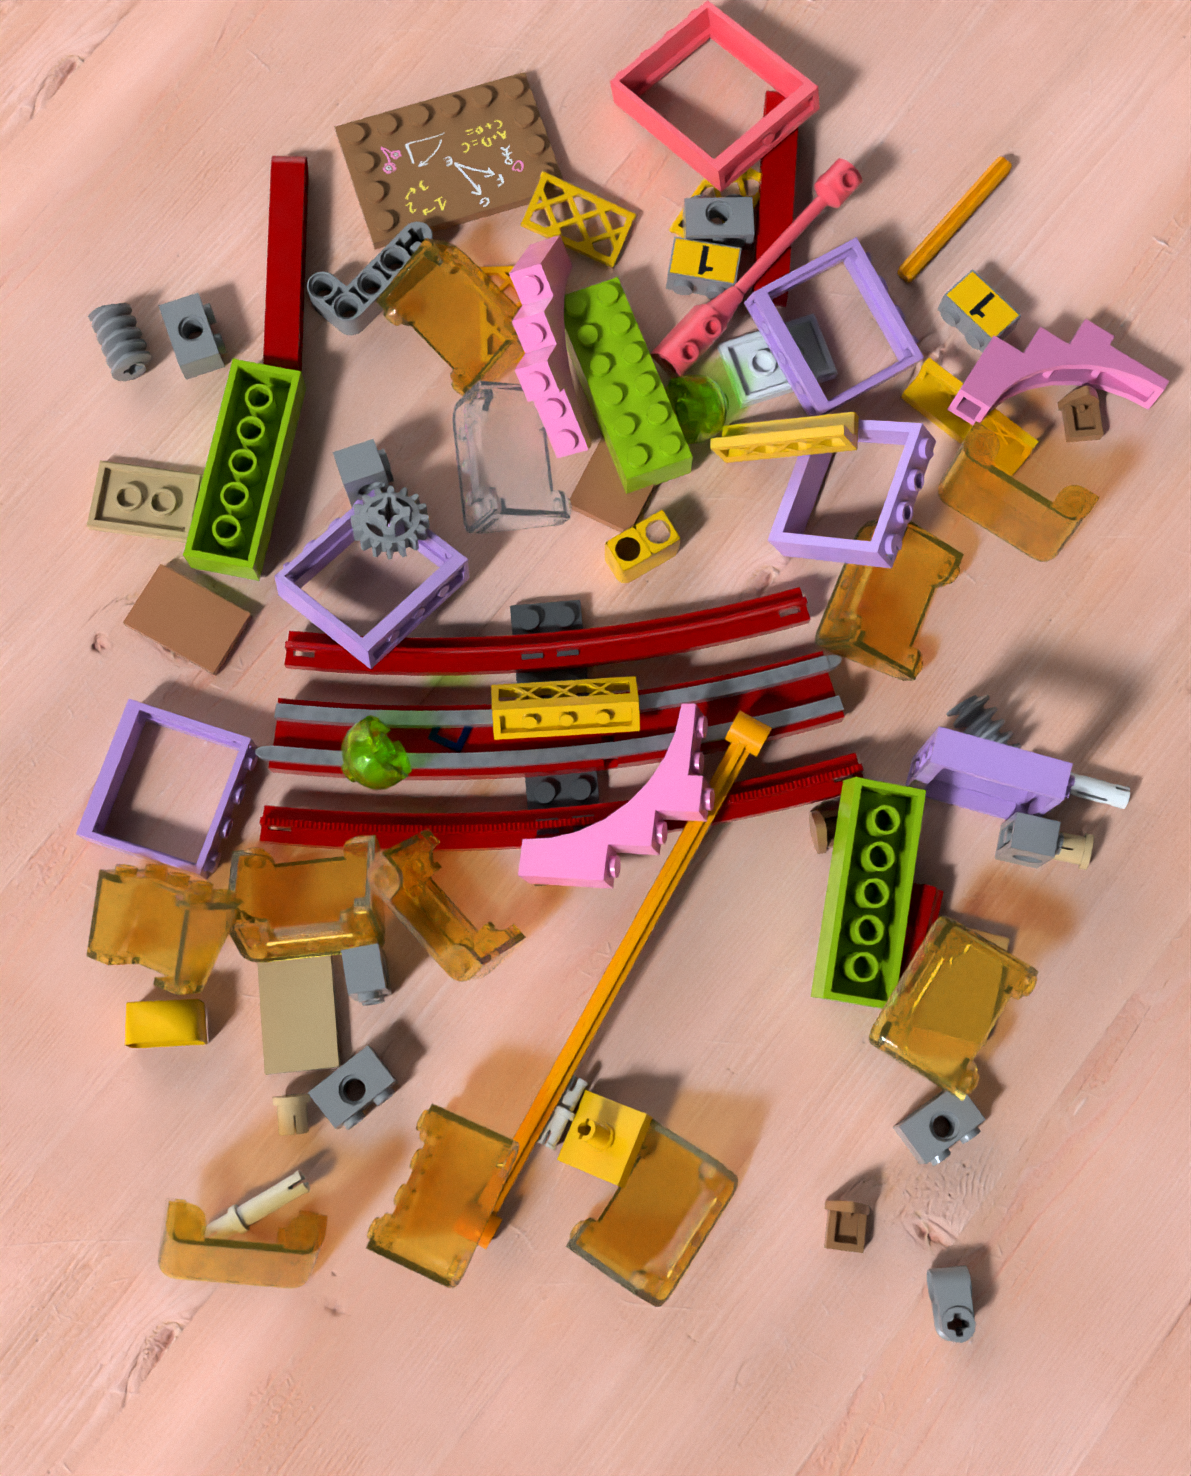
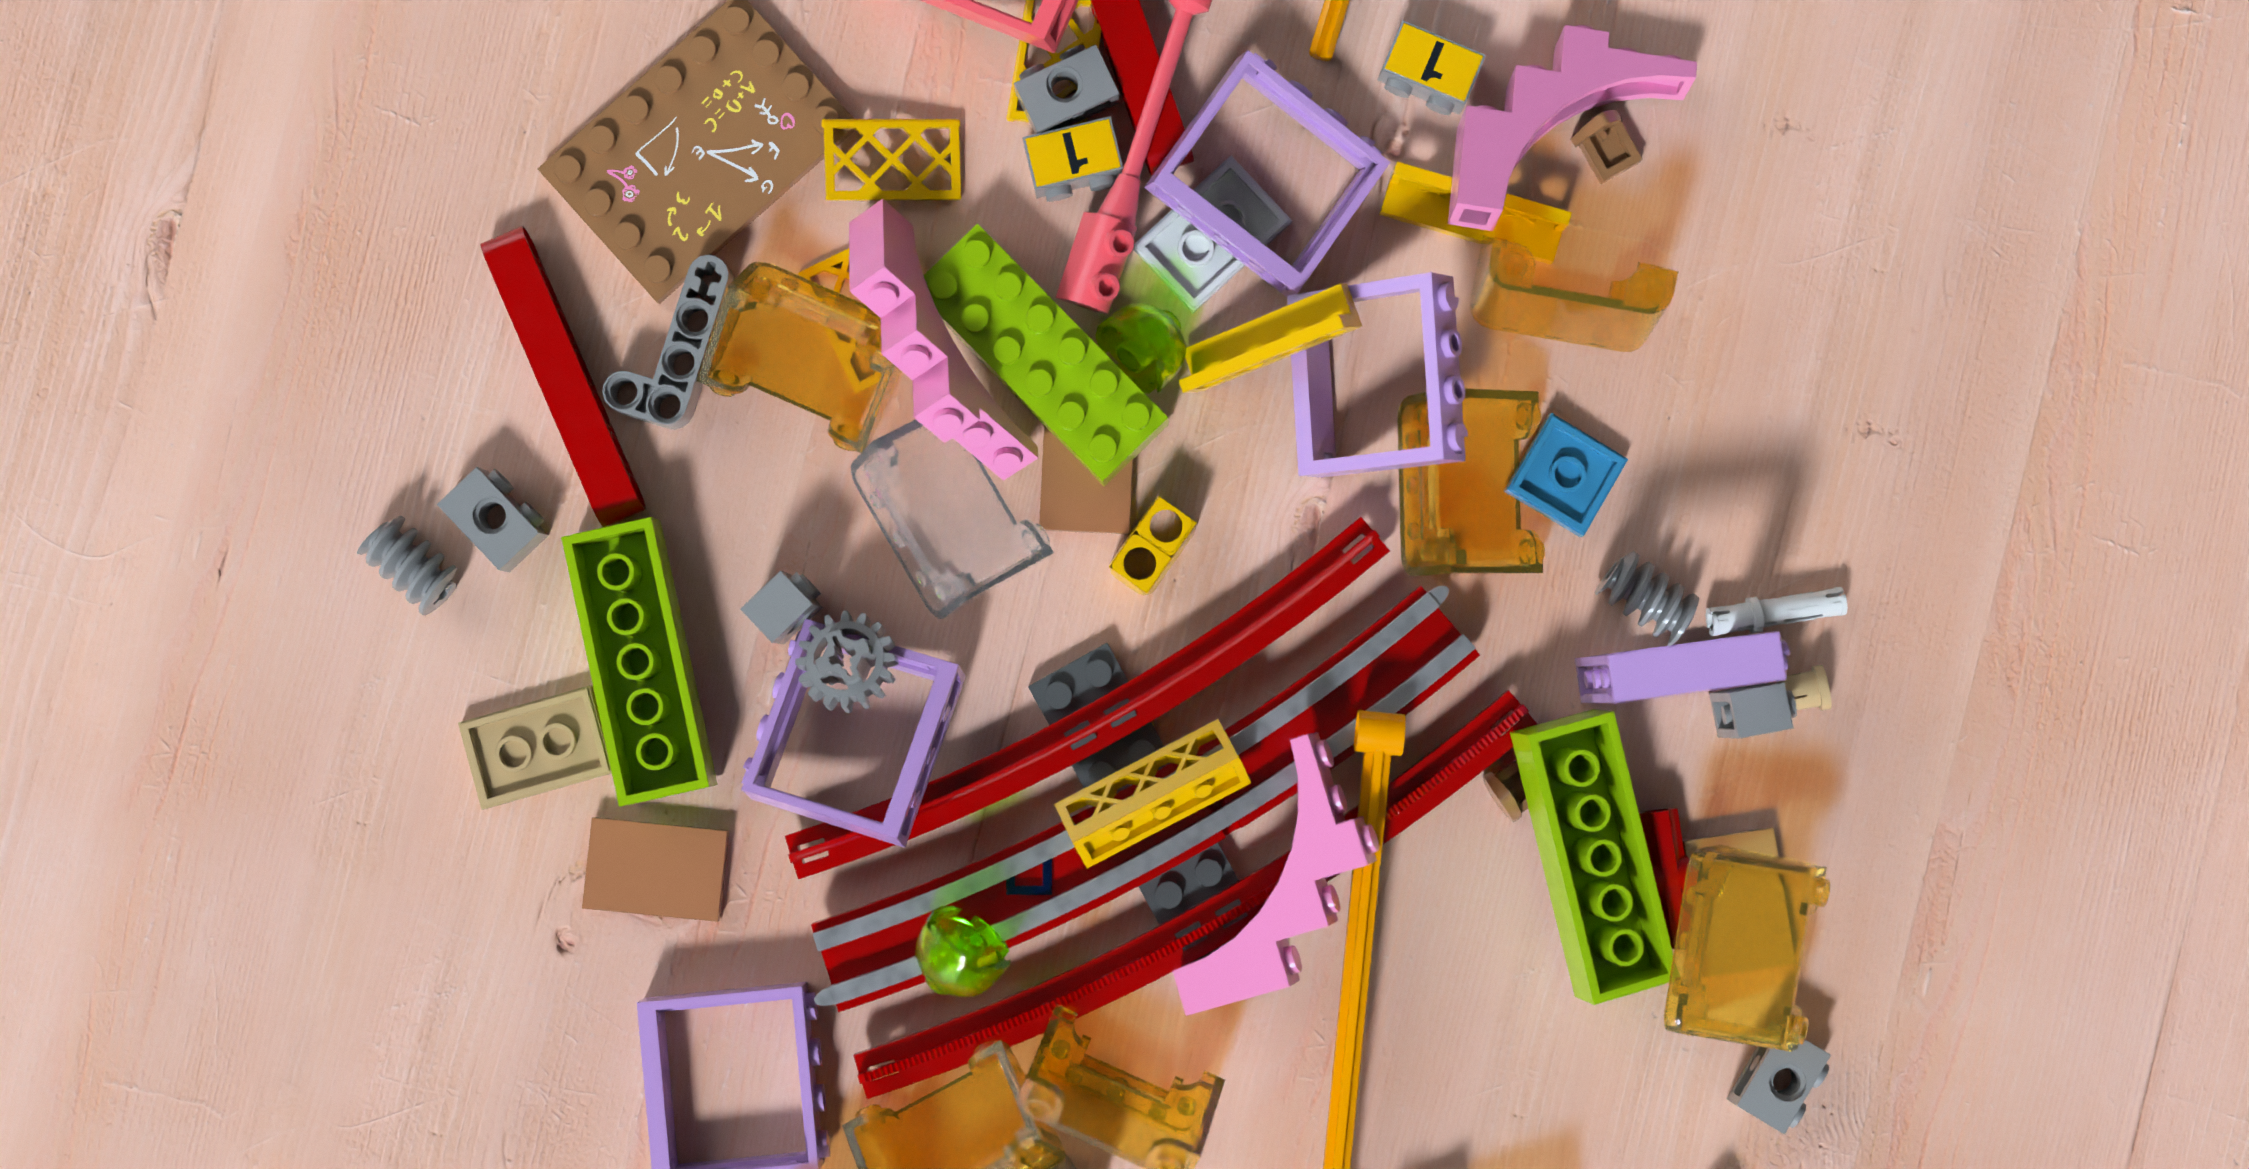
camera: 20 degrees left, 10 degrees up
(959, 625) = (1565, 475): none -> dark azure tile

